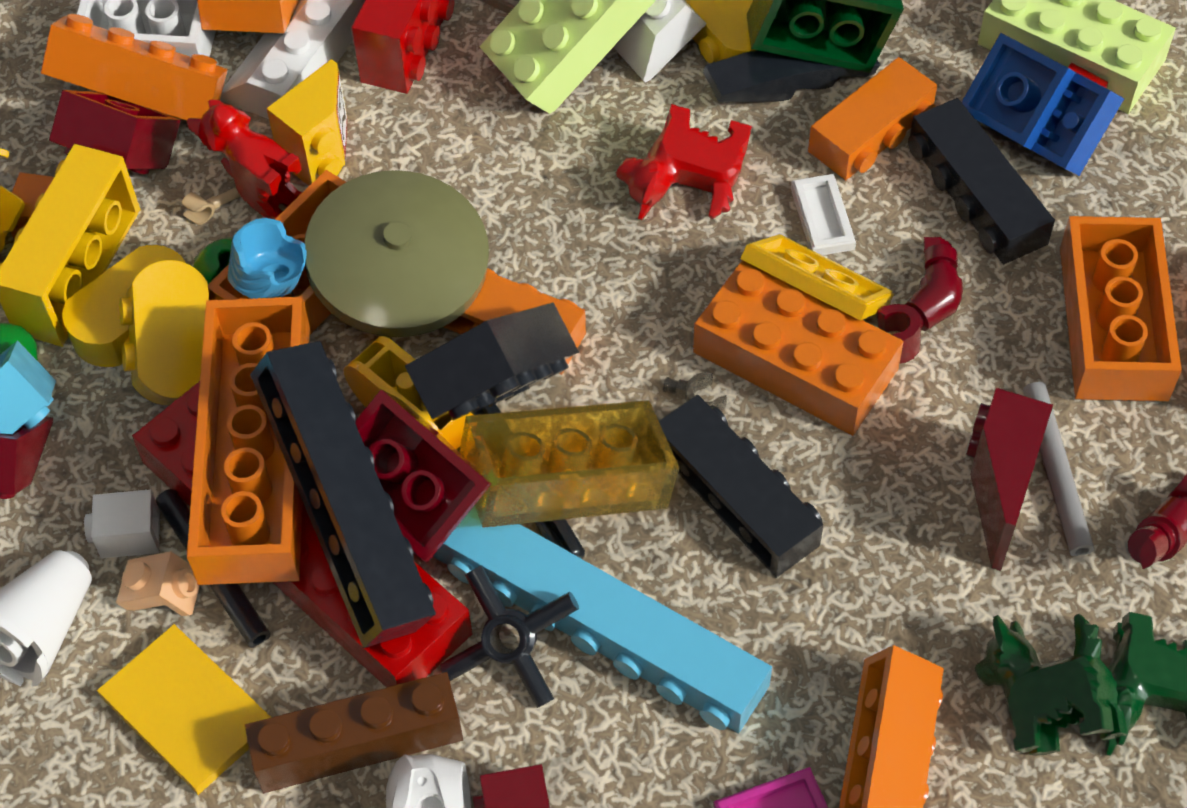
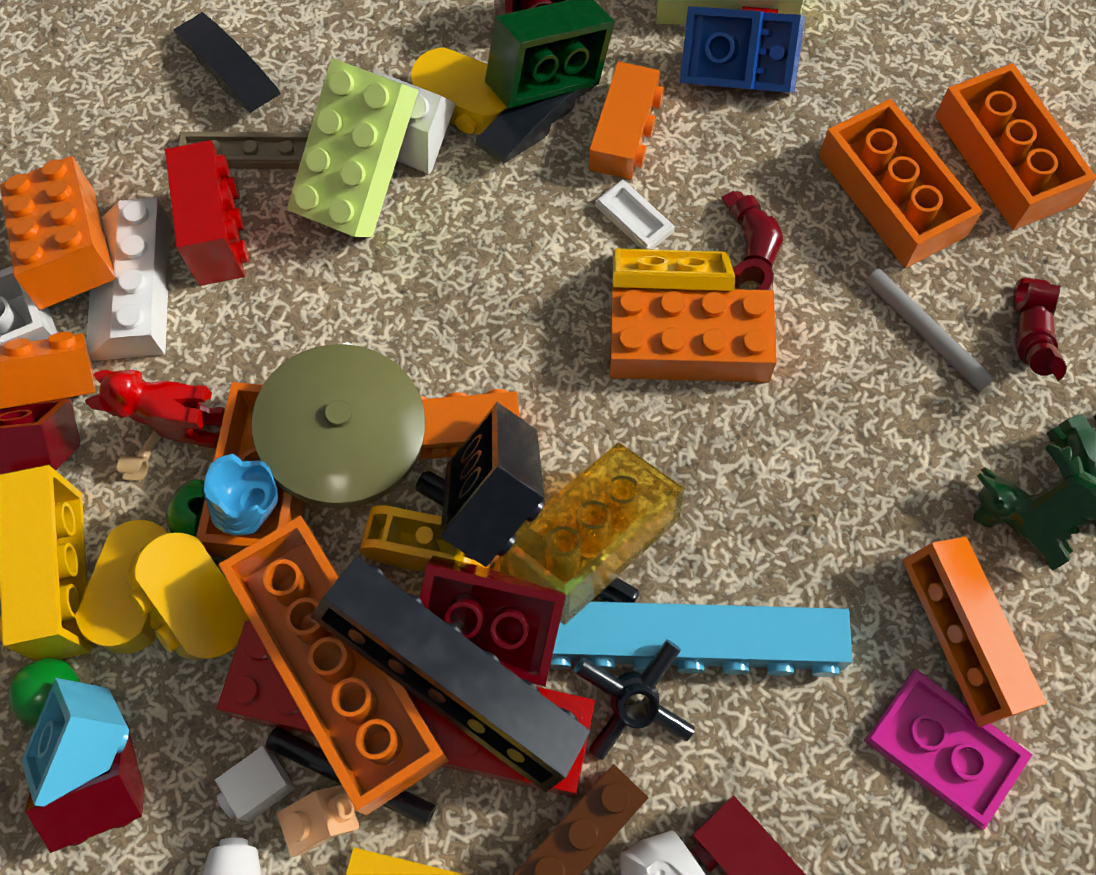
camera: 30 degrees left, 10 degrees up
(313, 123) = (189, 348): yellow slope -> none
(687, 389) = (628, 413): clear smoke piece -> none
(689, 159) = (508, 222): red animal -> none
(741, 486) = (724, 471): black brick -> none
(980, 181) = (734, 131): black brick -> none
(1004, 455) = (911, 355): dark red slope -> none

